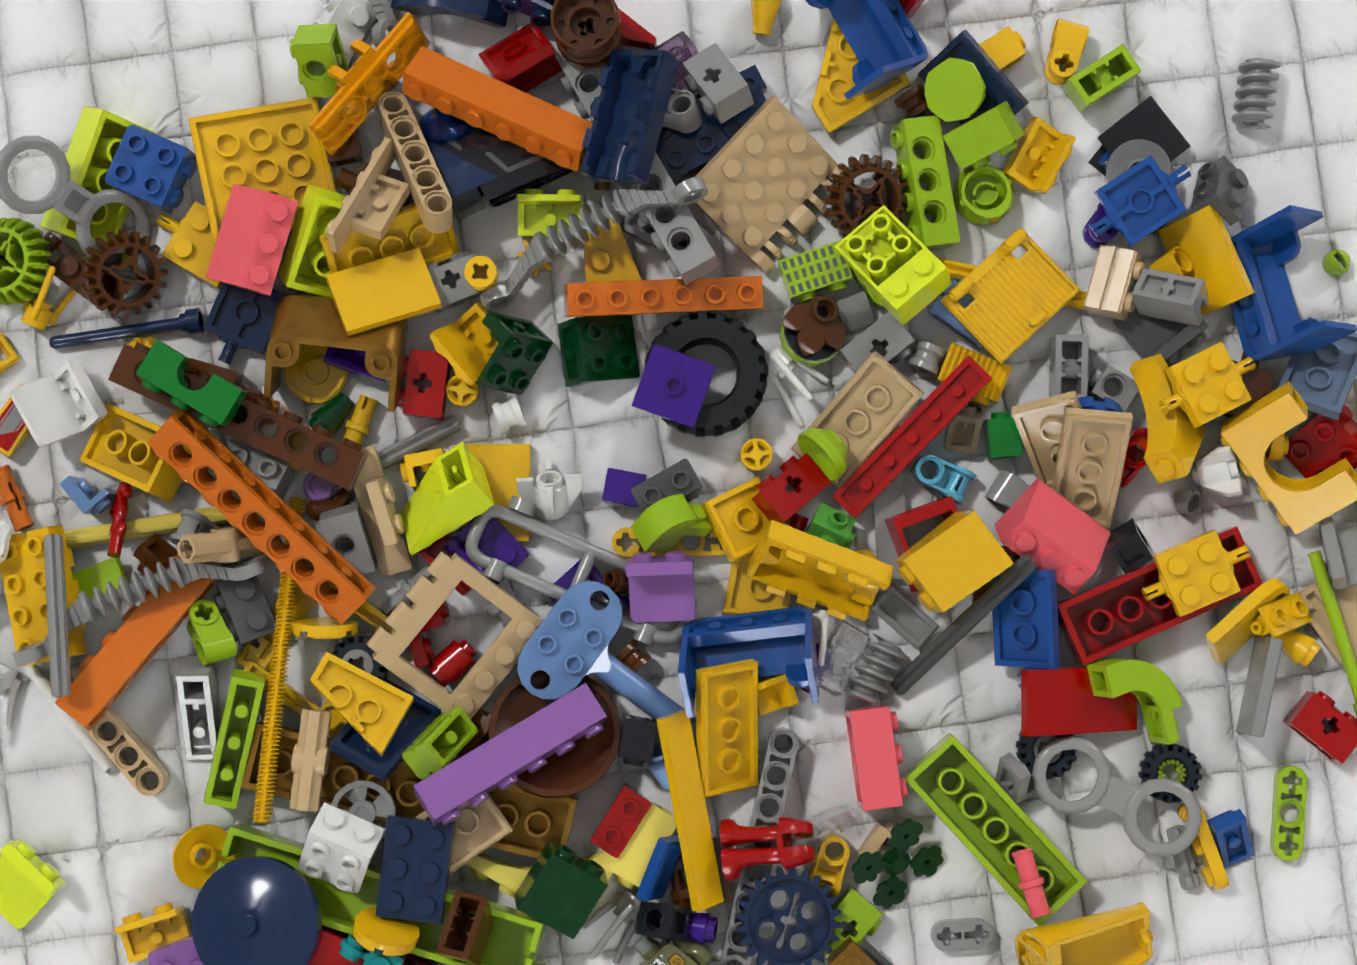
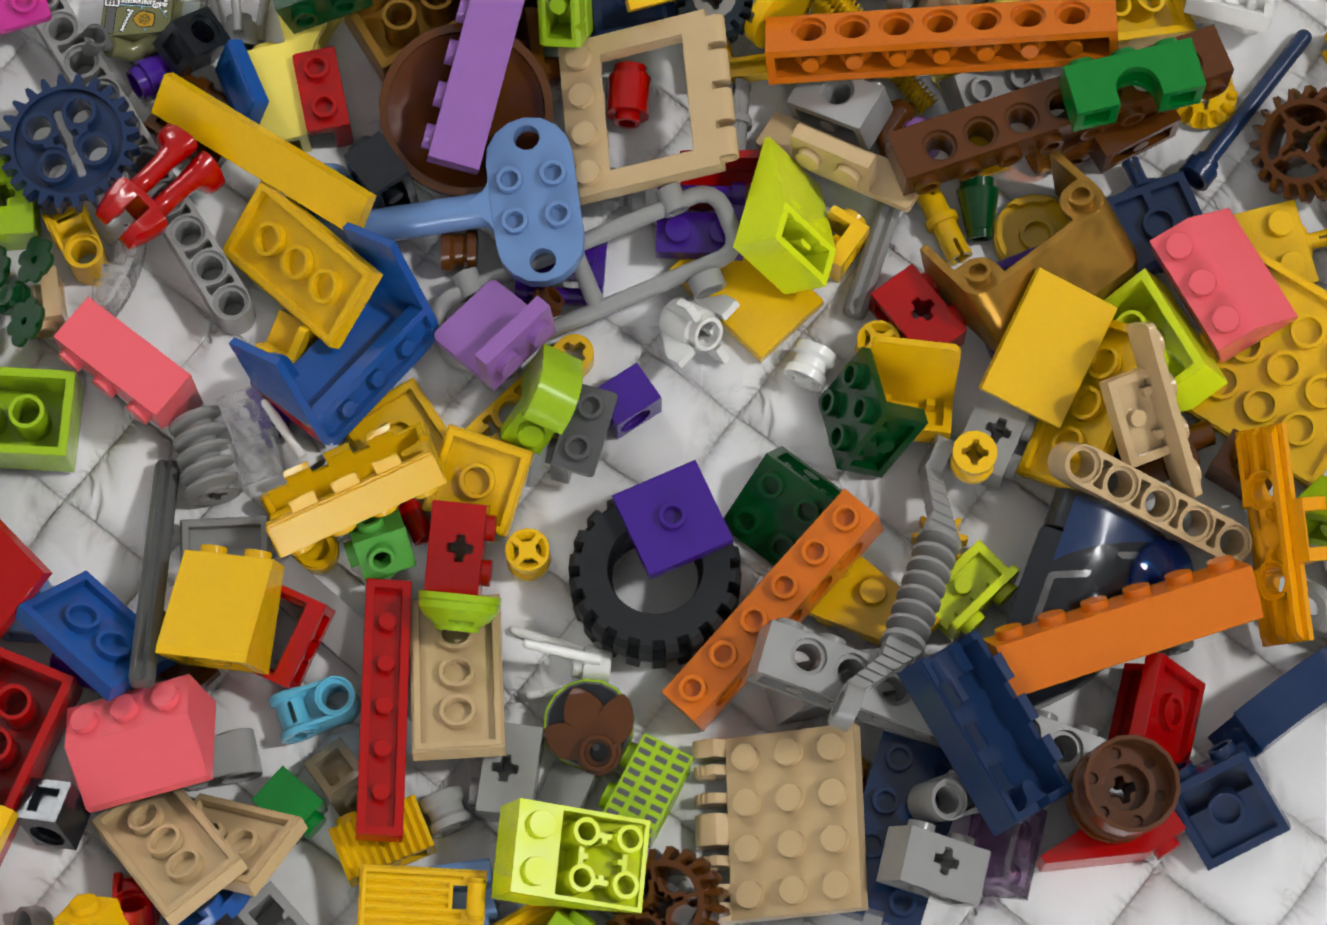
camera: 135 degrees right, 15 degrees down
(421, 647) = (670, 80): red slope -> none

